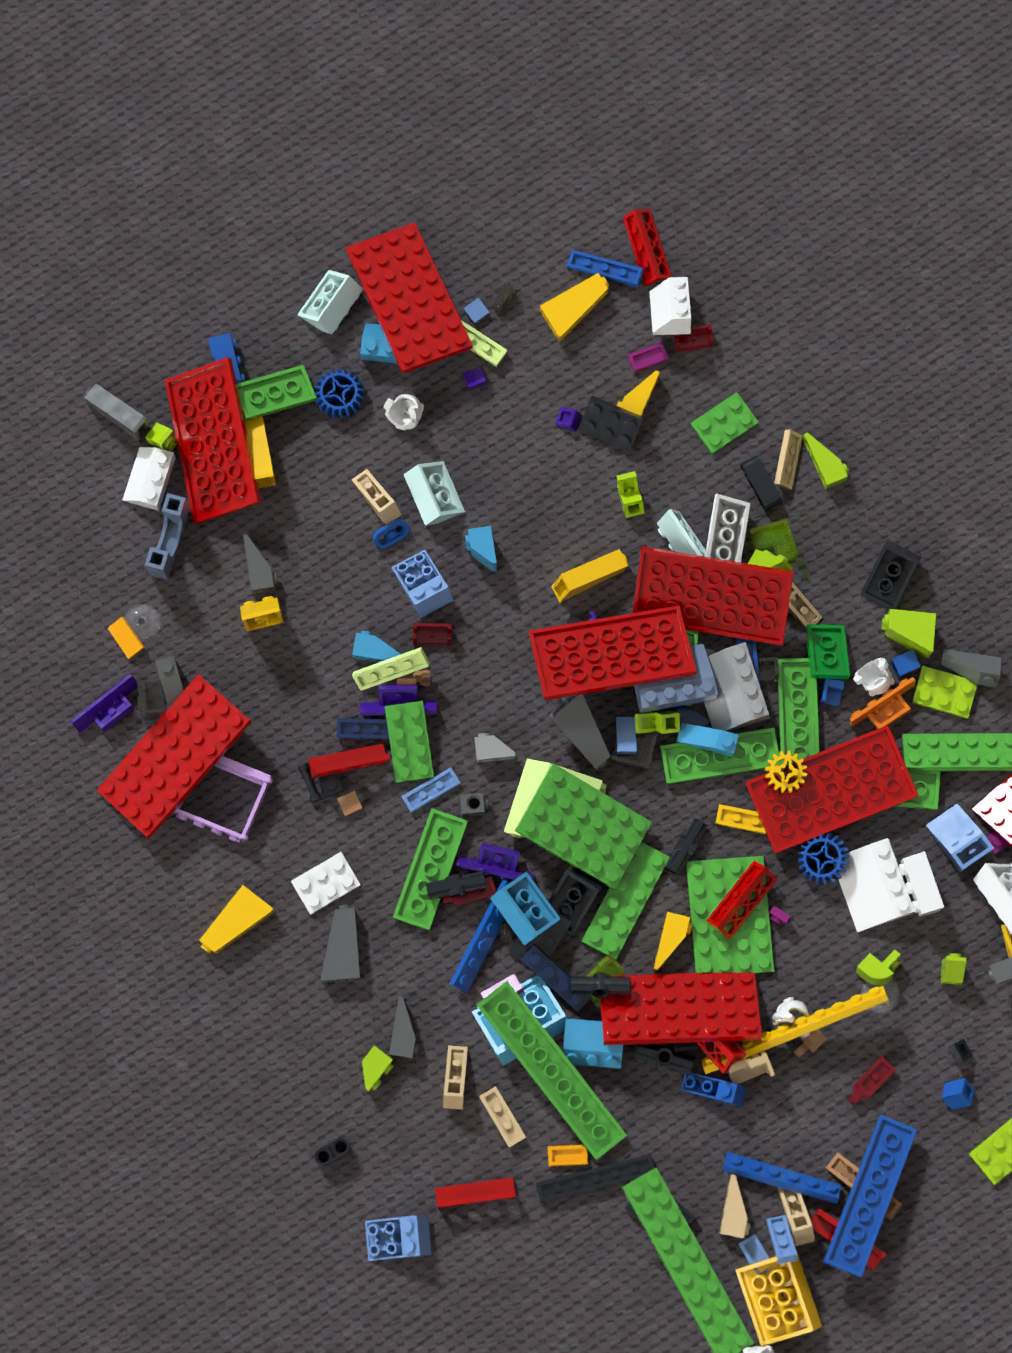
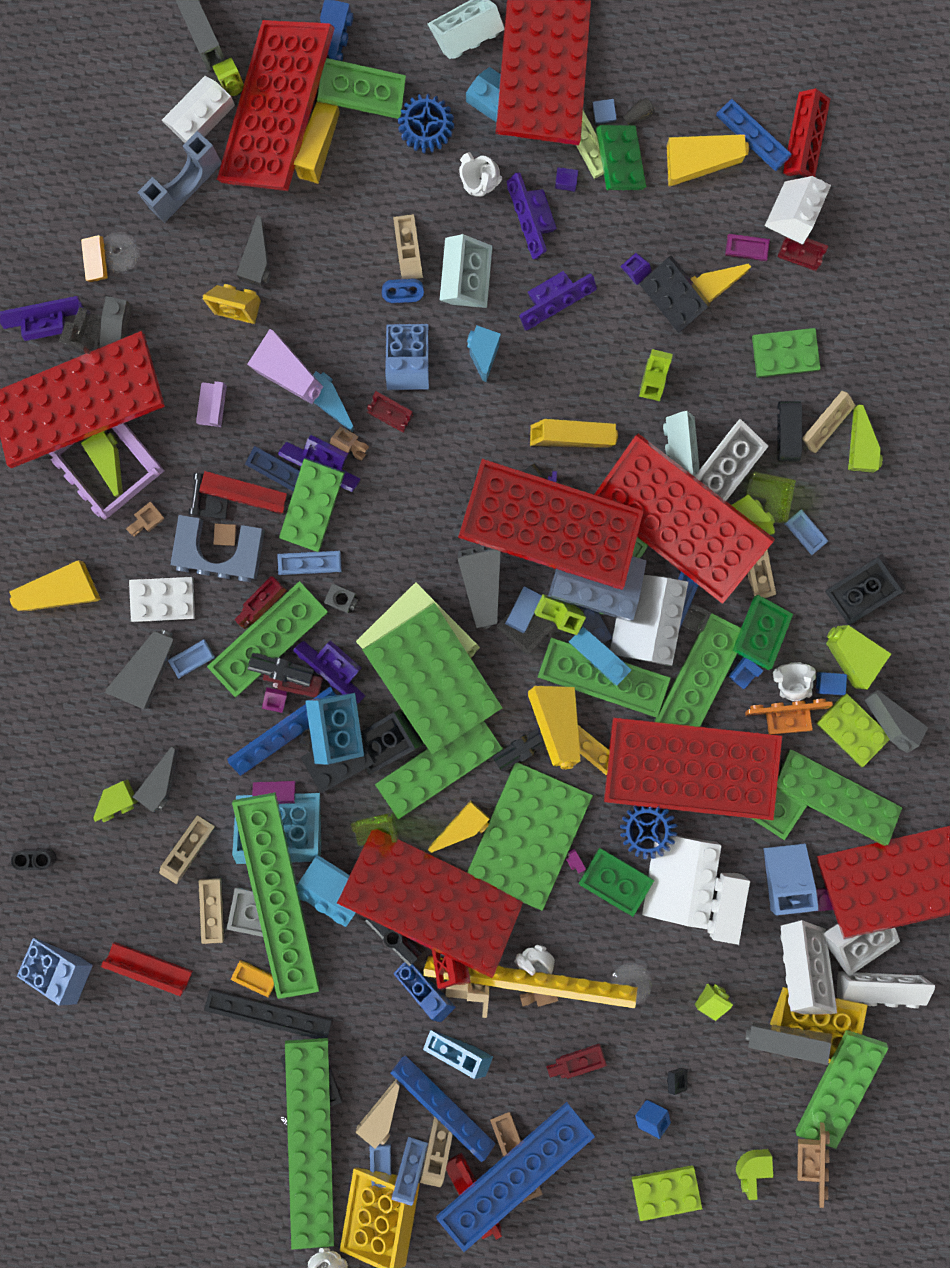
camera: 30 degrees right, 10 degrees up
(217, 790) = (105, 457): none -> lime slope
(279, 823) = (147, 517): none -> medium nougat plate
(282, 704) = (211, 404): none -> lavender panel
(328, 643) = (281, 365): none -> lavender slope
(375, 919) = (191, 658): none -> medium blue tile
(377, 820) = (188, 555): none -> sand blue arch
(391, 669) = (330, 425): yellowish green plate -> none
(408, 842) = (260, 602): none -> dark red hinge
(462, 419) = (532, 213): none -> dark purple bracket
(462, 915) = (274, 699): none -> magenta plate
(491, 749) = (386, 553): light grey slope -> none
(509, 340) = (621, 157): none -> green plate
(515, 474) = (555, 296): none -> dark purple bracket
(533, 1102) = (244, 913): none -> light grey plate
(553, 977) = (330, 807): dark blue plate -> none
(601, 985) = (367, 842): black piece -> none
(702, 809) = (558, 723): none -> yellow slope
(740, 896) = (546, 826): red fence -> none
(769, 1125) = (458, 1054): none -> dark azure slope
(794, 773) = (663, 722): yellow gear -> none
(819, 555) = (806, 532): none -> medium blue tile
(821, 915) = (616, 882): none -> green plate
(878, 972) = (639, 966): lime brick -> none

